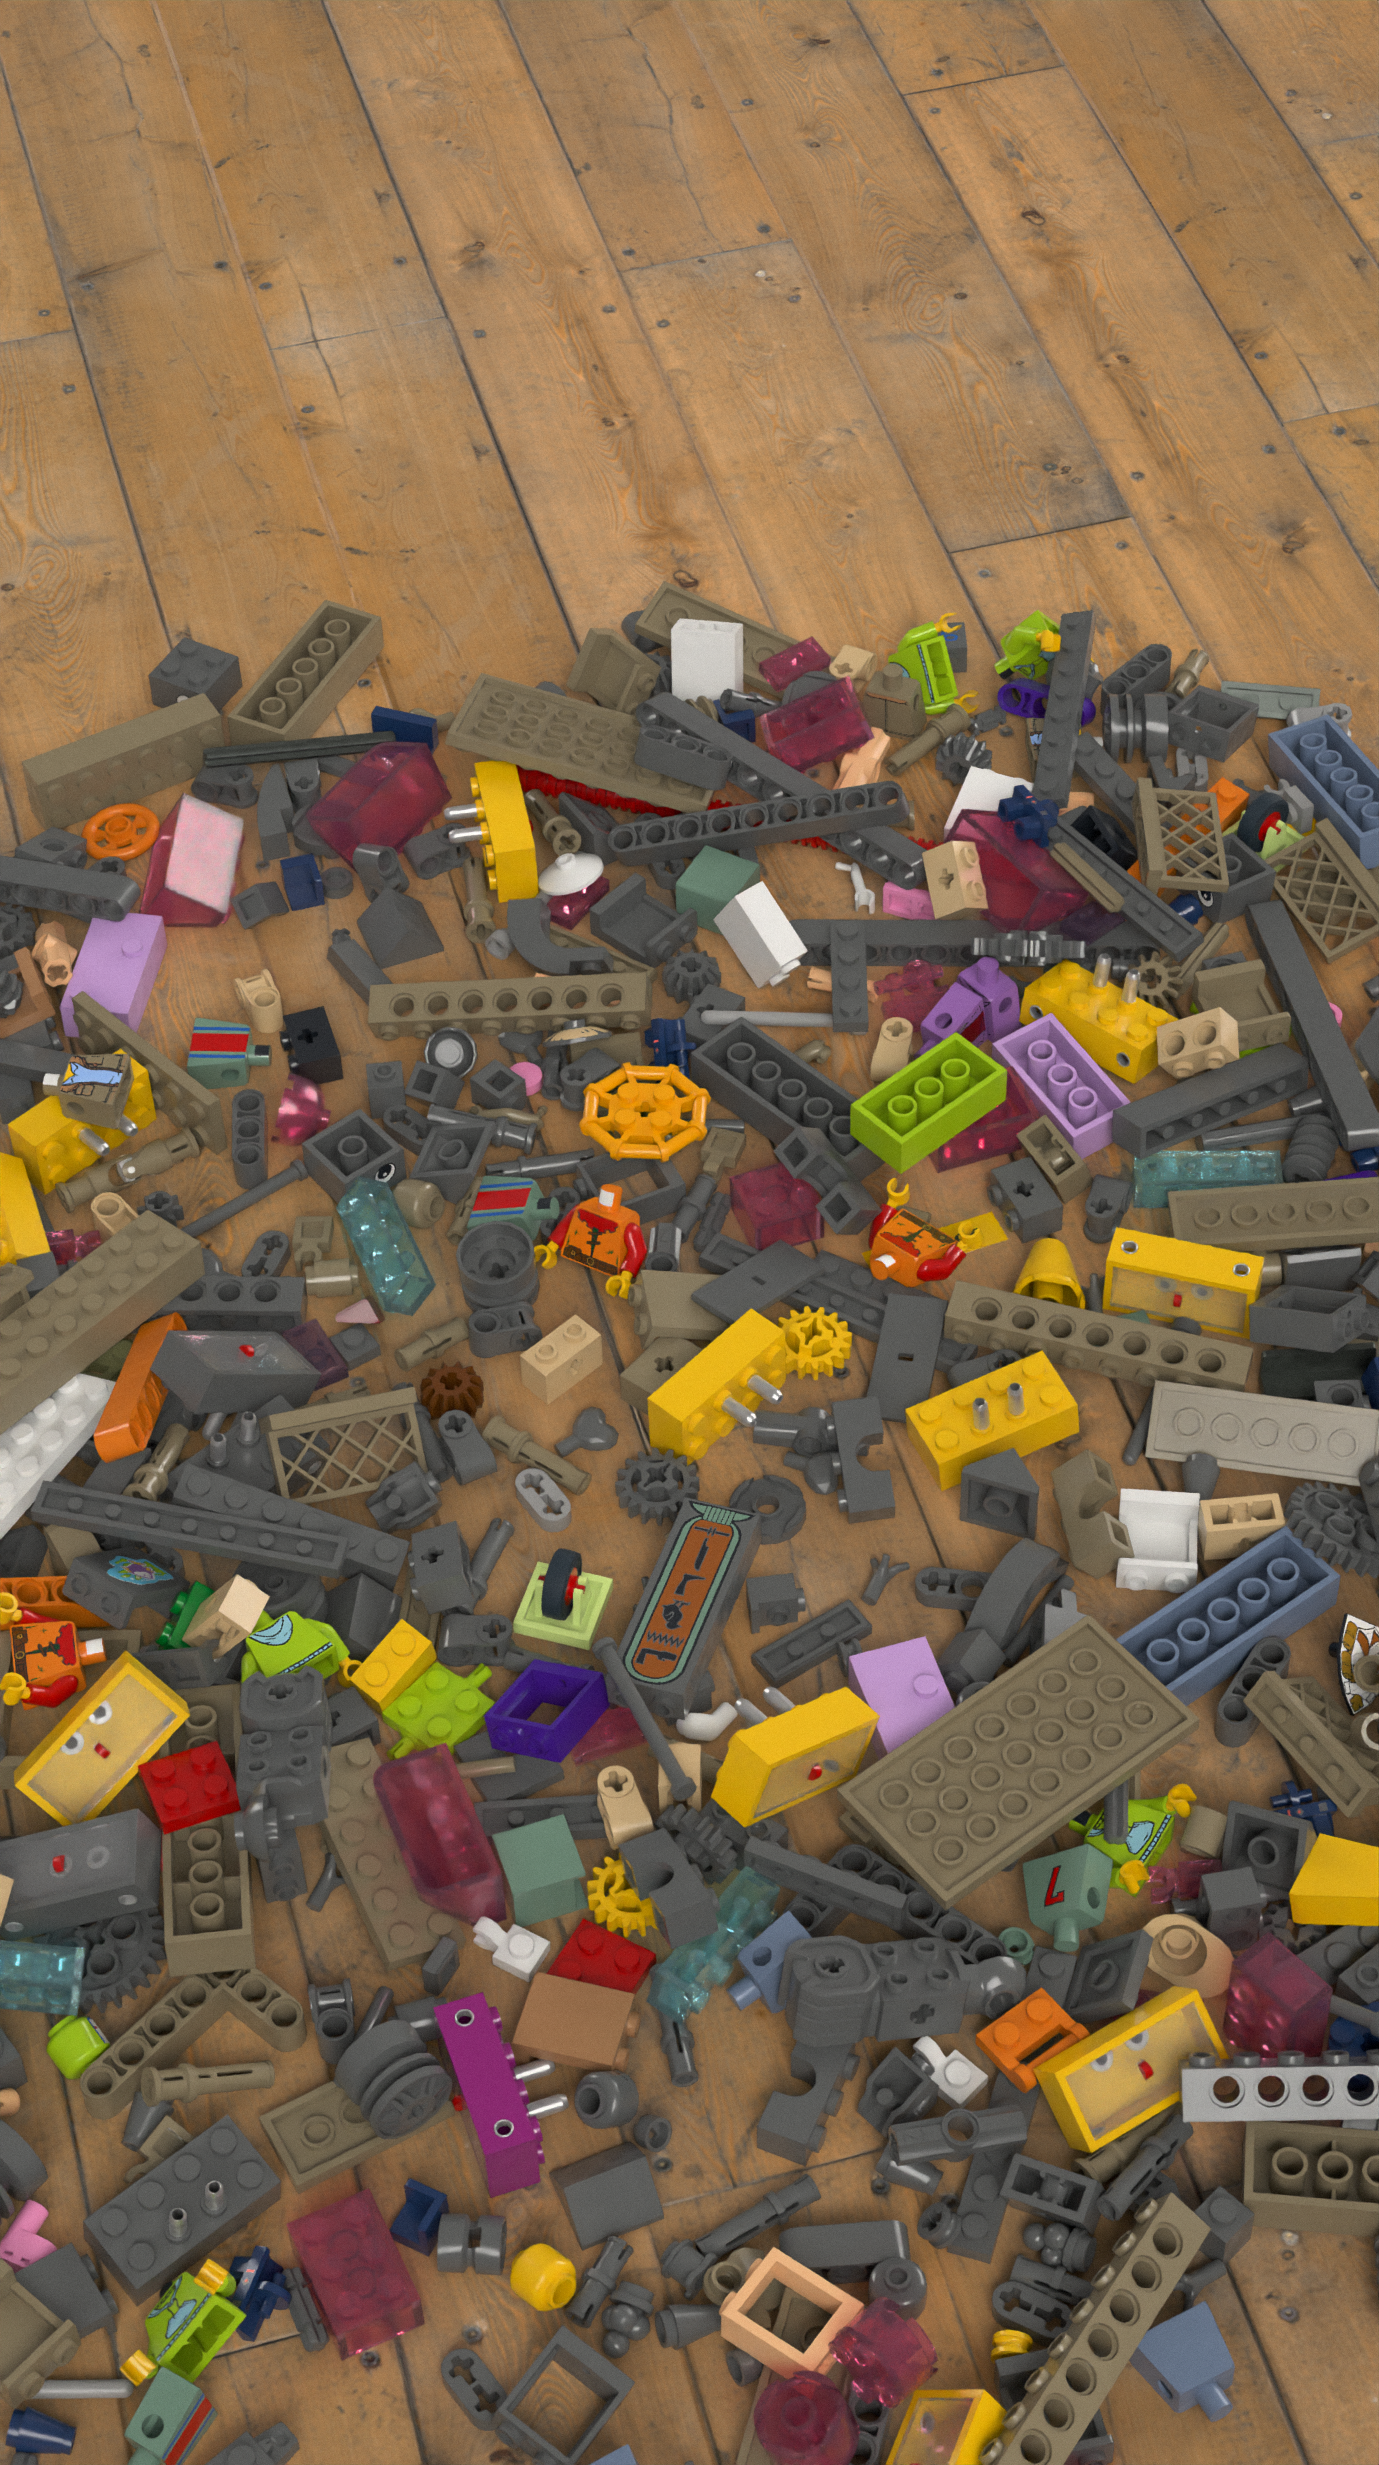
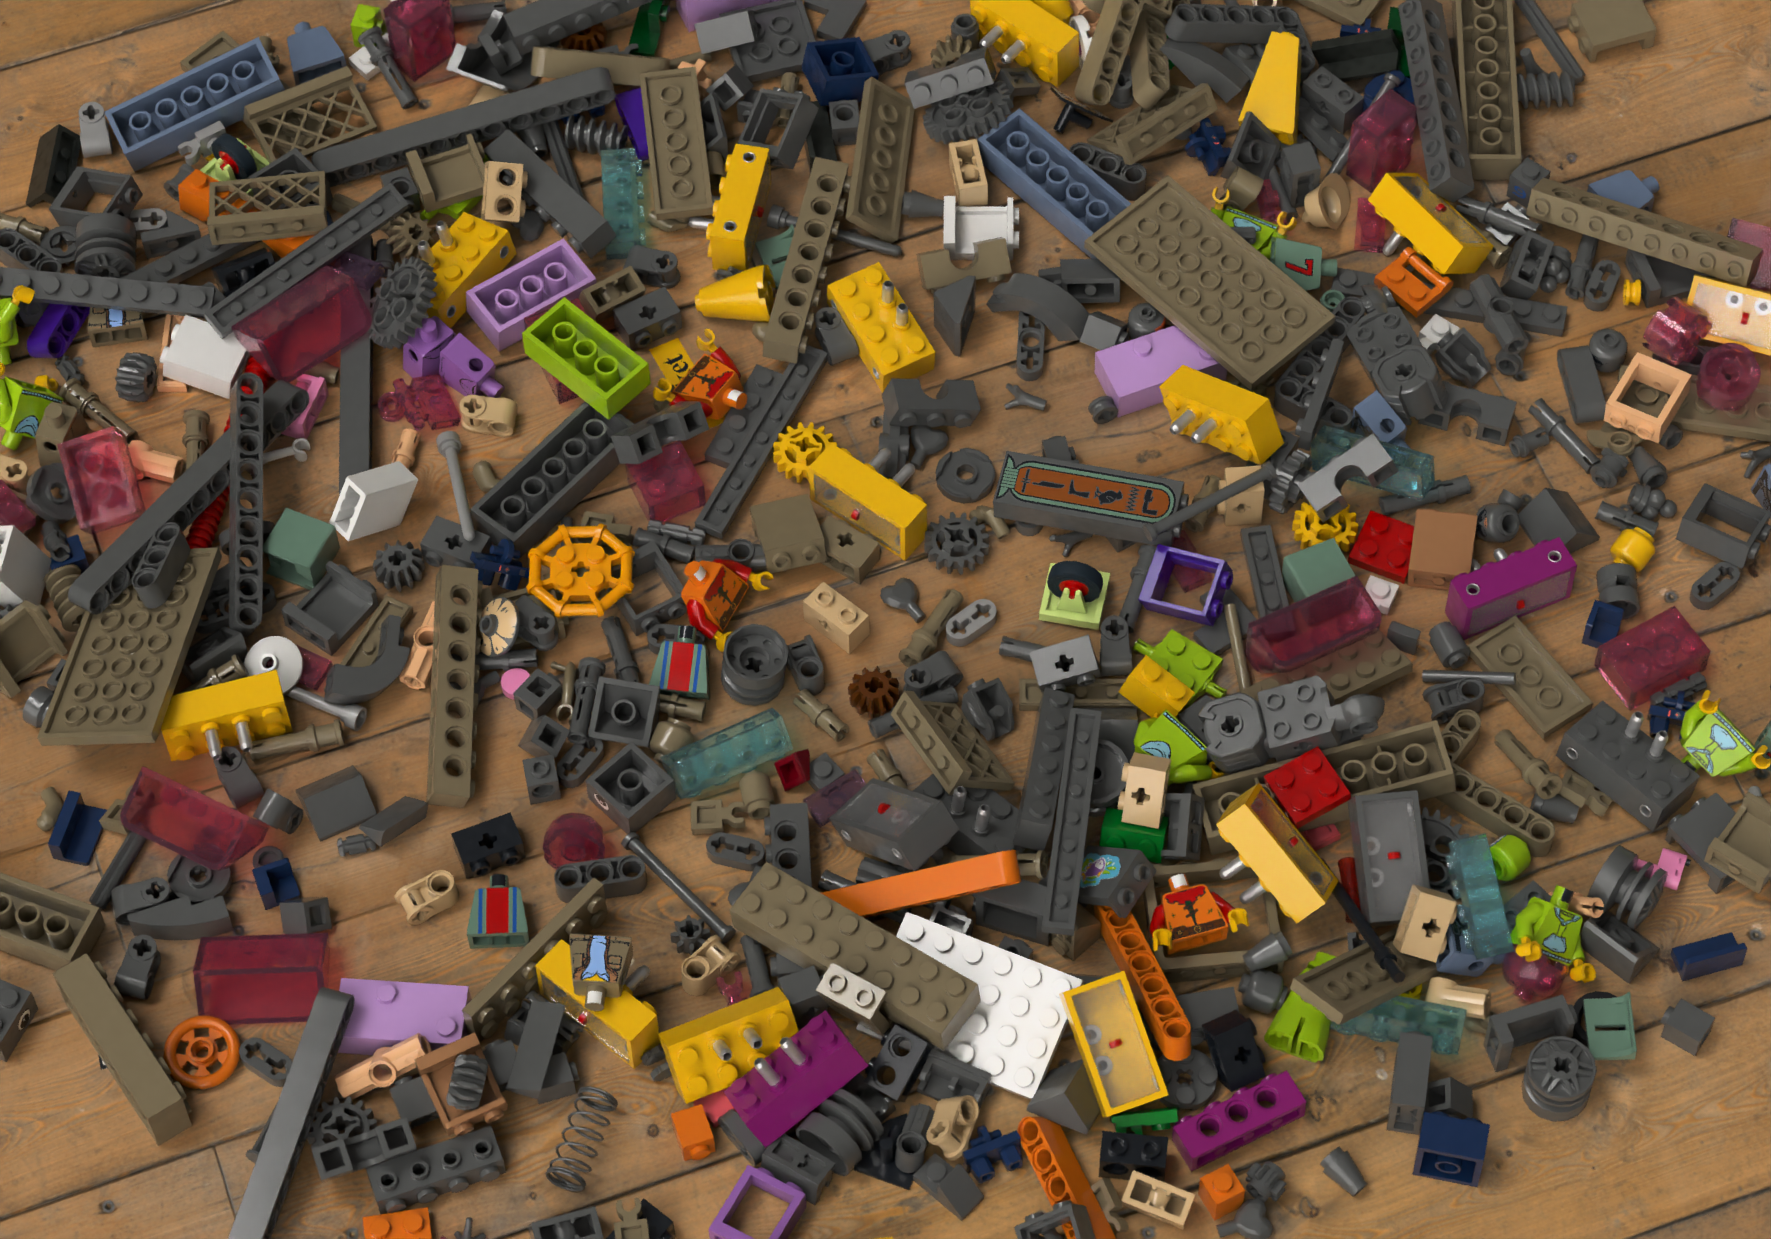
camera: 95 degrees left, 10 degrees up
(55, 847) = (248, 1095): dark grey brick -> none
(149, 1159) = (653, 988): dark tan piece -> none
(294, 749) = (107, 901): pearl dark grey axle -> none
(393, 2079) = (1521, 633): dark grey wheel -> none
(452, 1050) = (500, 732): dark grey hair -> none
(621, 1806) = (1271, 526): tan piece -> none
(746, 2162) = (1524, 444): none -> dark grey pin
(758, 1282) = (777, 491): dark grey piece -> none
(810, 1644) = (1087, 437): dark grey tile -> none
(849, 976) = (412, 441): dark grey plate -> none
(909, 1329) = (797, 384): dark grey piece -> none
(939, 2225) = (1560, 338): dark grey bush -> none
(955, 880) = (315, 359): tan brick -> none
(1030, 815) = (253, 298): dark blue hips -> none
(1087, 877) = (320, 263): dark tan axle -> none
(1108, 1977) = (1360, 241): dark grey plate -> none

